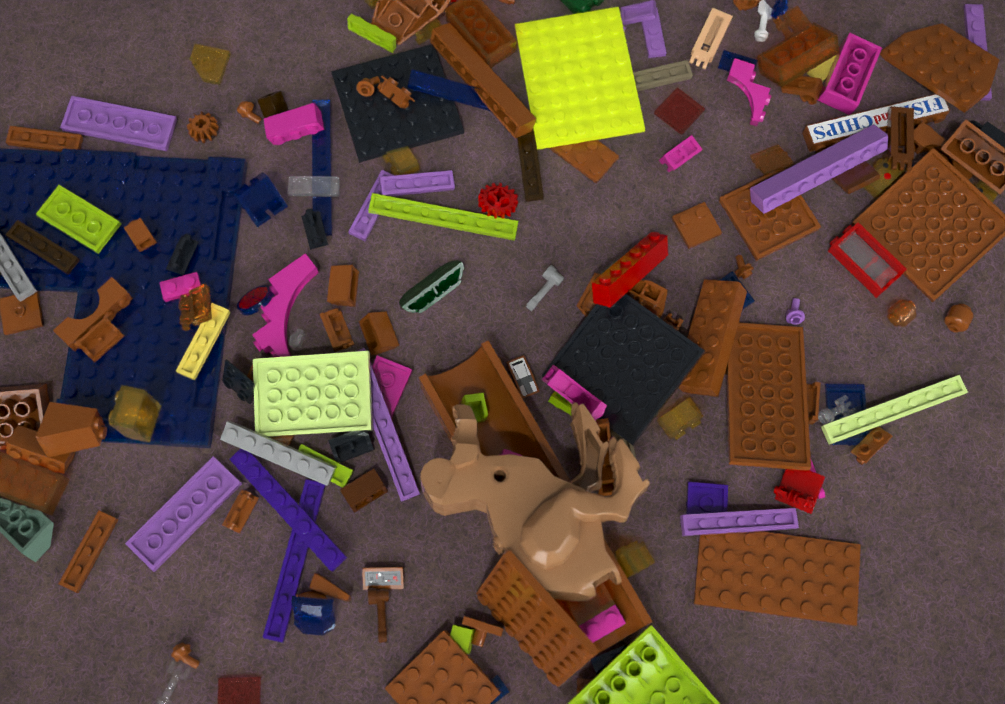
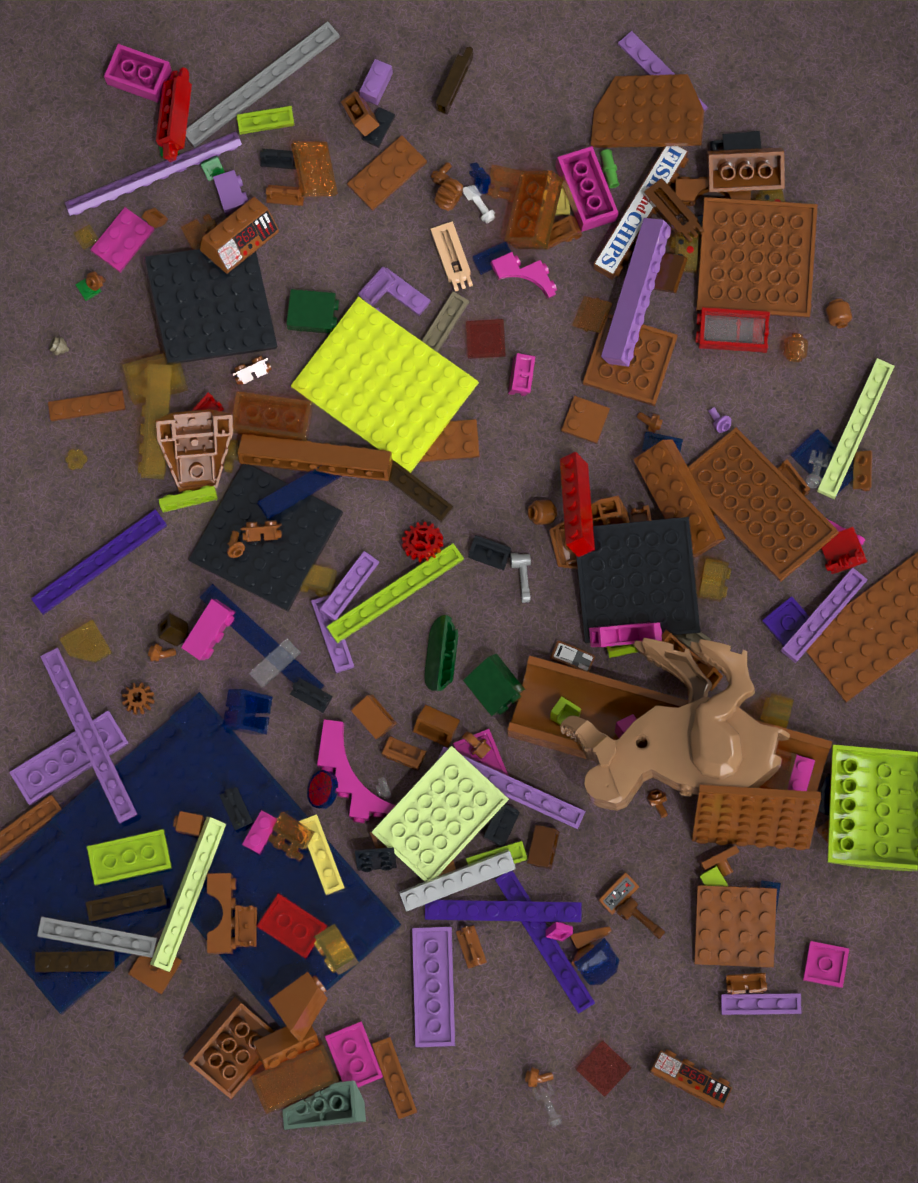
camera: 35 degrees left, 5 degrees up
(78, 506) = (354, 1055): none -> dark pink plate
(86, 280) = (188, 894): none -> yellowish green plate
(132, 366) = (291, 925): none -> red tile
(142, 119) = (88, 735): none -> medium lavender plate
(273, 20) = (99, 562): none -> dark purple plate
(310, 562) = (559, 931): none -> dark pink plate
(390, 376) = (479, 747): none -> dark orange piece
(446, 341) = (494, 685): none -> dark green brick
(480, 536) = (656, 799): none -> dark orange plate
(537, 251) = (489, 552): none -> black hinge
(601, 257) = (542, 512): none -> dark orange head
(879, 77) = (609, 168): none -> bright green pin

